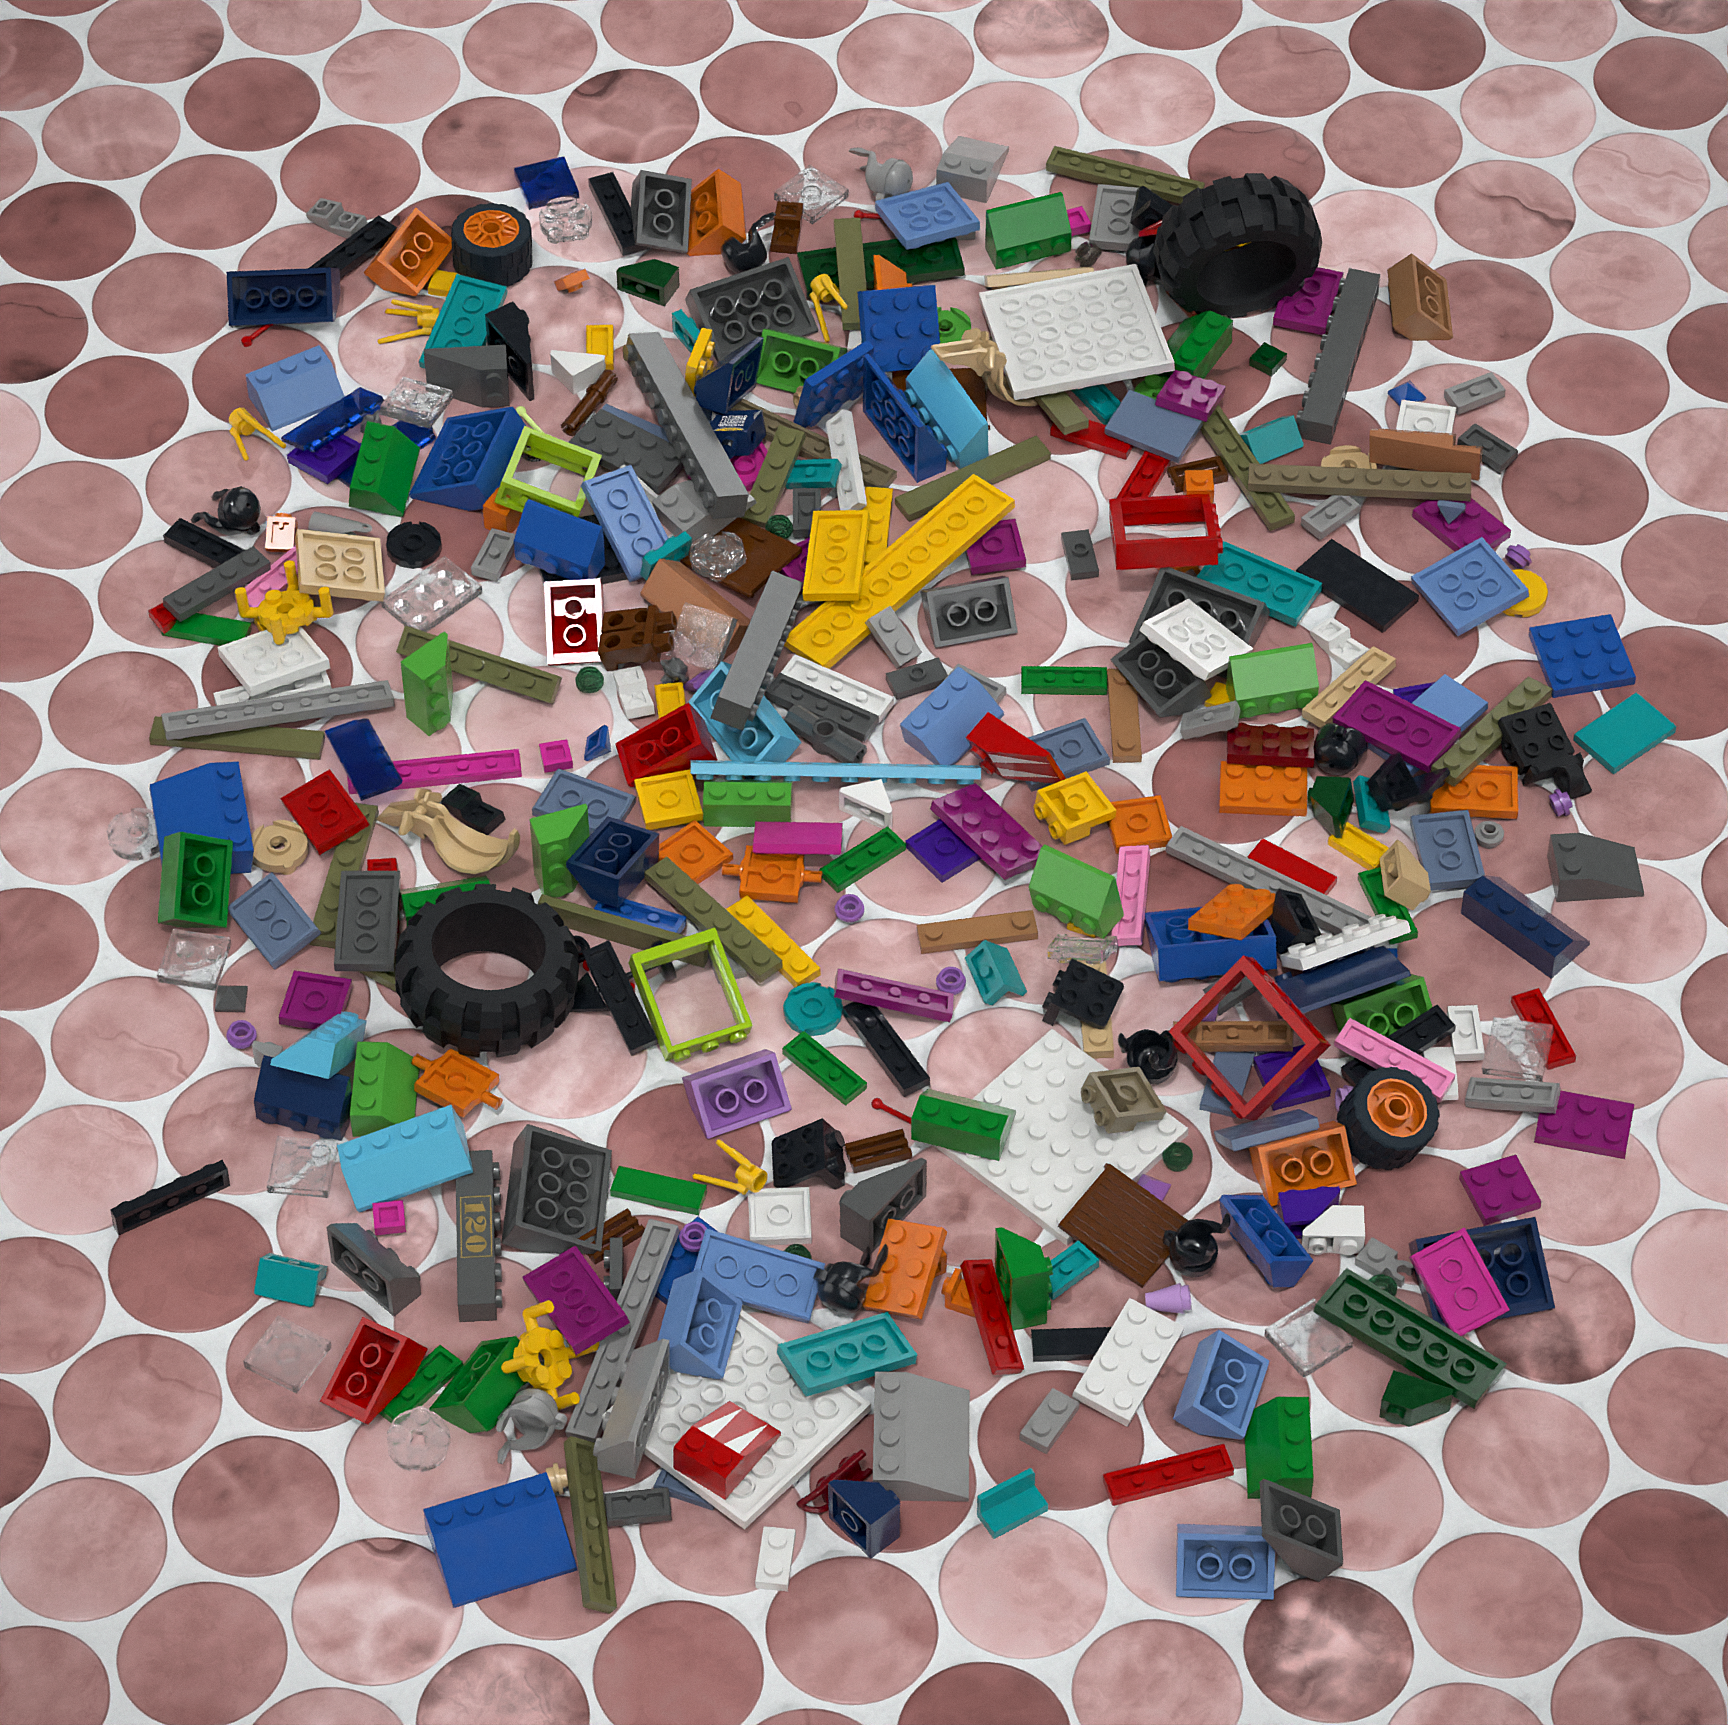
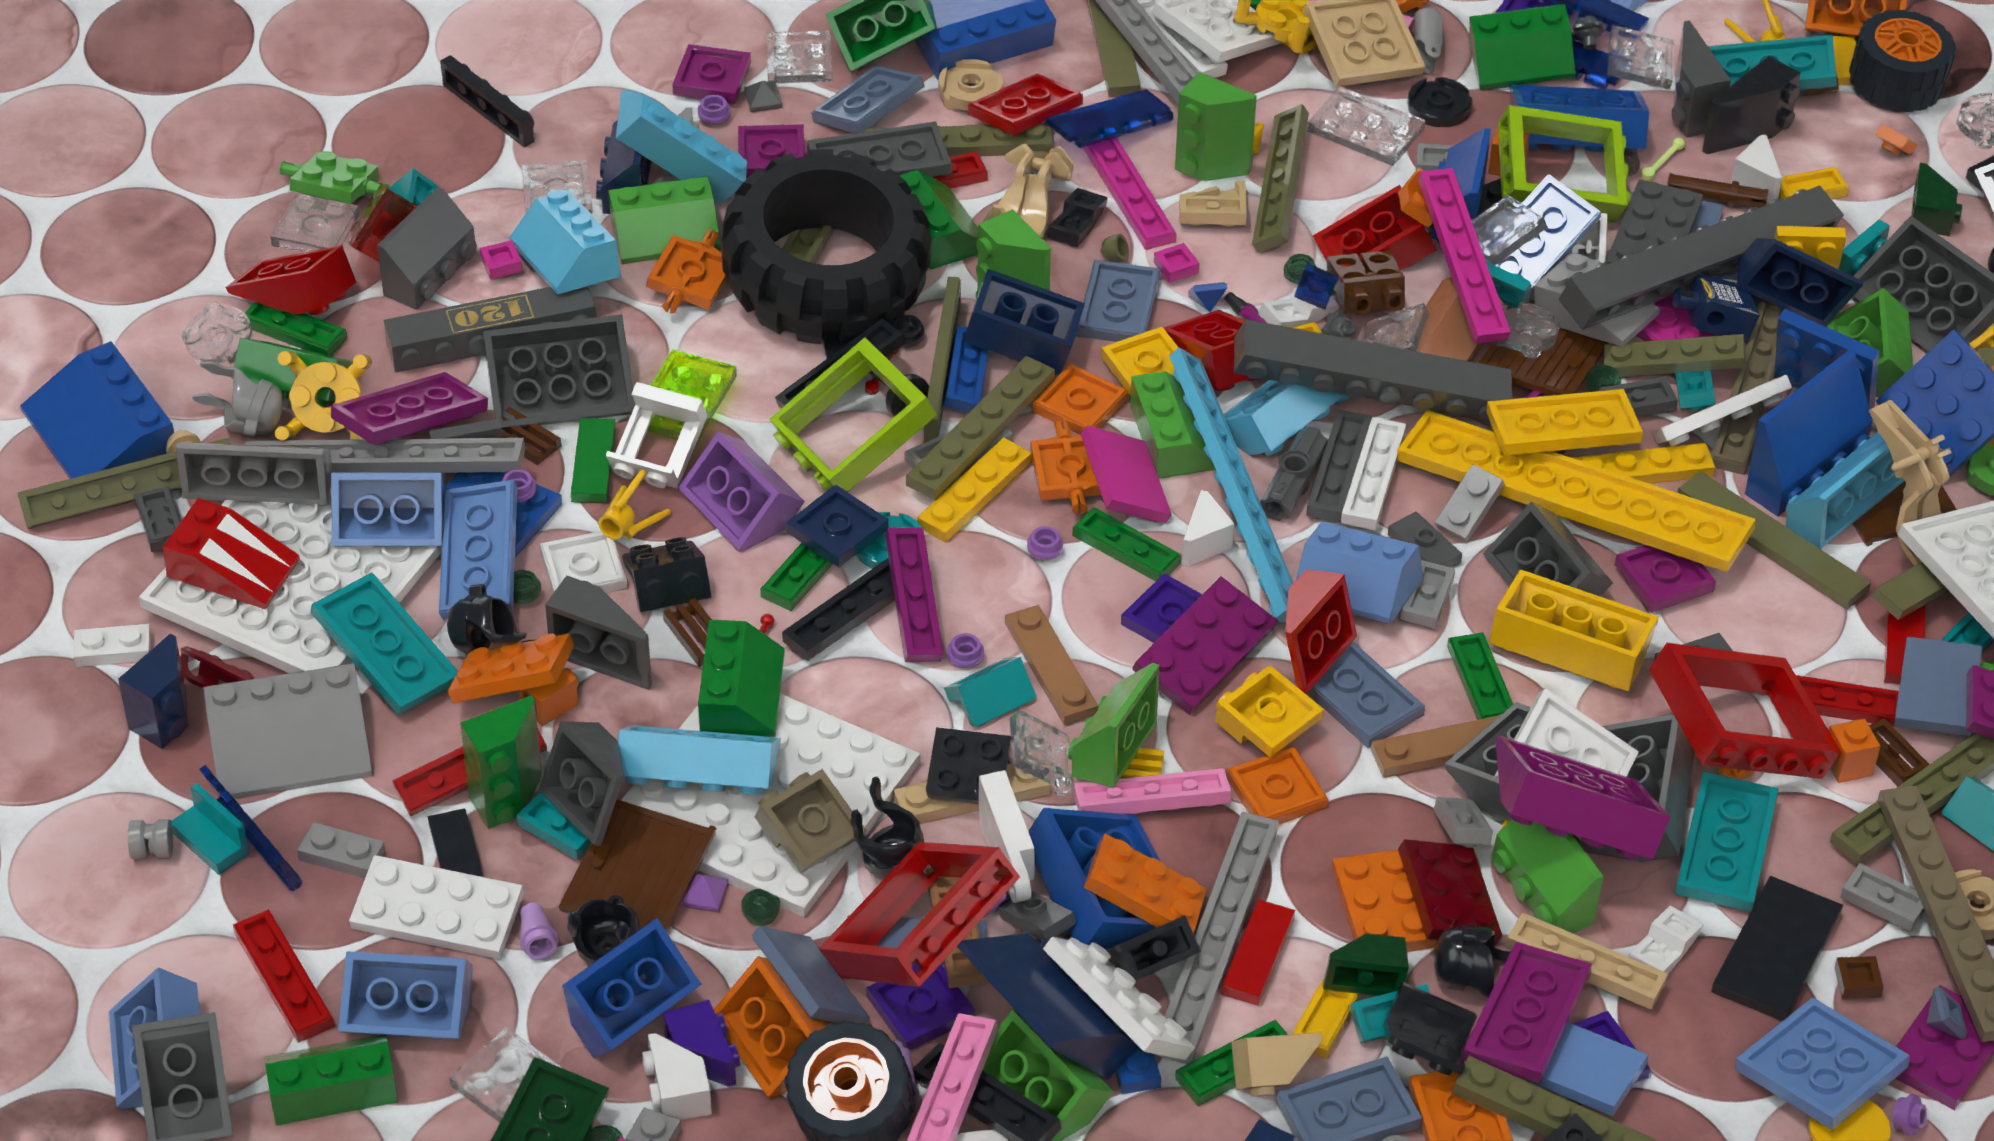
camera: 75 degrees right, 5 degrees down
(192, 1026) = (711, 72): none -> magenta plate
(234, 1328) = (333, 177): none -> bright green plate
(336, 1287) = (379, 218): none -> clear red slope
(495, 714) = (1214, 207): none -> tan wing
(524, 791) = (1115, 248): none -> olive hinge
(575, 572) = (1413, 201): none -> orange bracket
(607, 1113) = (694, 378): none -> clear neon green plate
(626, 725) = (1242, 308): none -> piece
(630, 530) = (1506, 228): none -> clear plate
(633, 667) = (1316, 286): none -> clear blue plate
(655, 558) = (1464, 256): none -> dark pink plate
(691, 1137) = (665, 403): none -> white panel
(803, 1031) = (837, 525): none -> dark blue plate
(1011, 1545) = (150, 839): none -> light grey wheel
(1035, 1158) = (698, 757): none -> medium azure slope
(1041, 1465) = (254, 834): none -> clear blue windscreen
(1045, 609) = (1573, 630): none -> yellow slope
(1060, 1221) = (584, 776): none -> dark grey slope
(1166, 981) = (1005, 828): none -> white piece
(1246, 632) = (1578, 800): none -> magenta slope
(1396, 548) = (1859, 977): none -> reddish brown plate

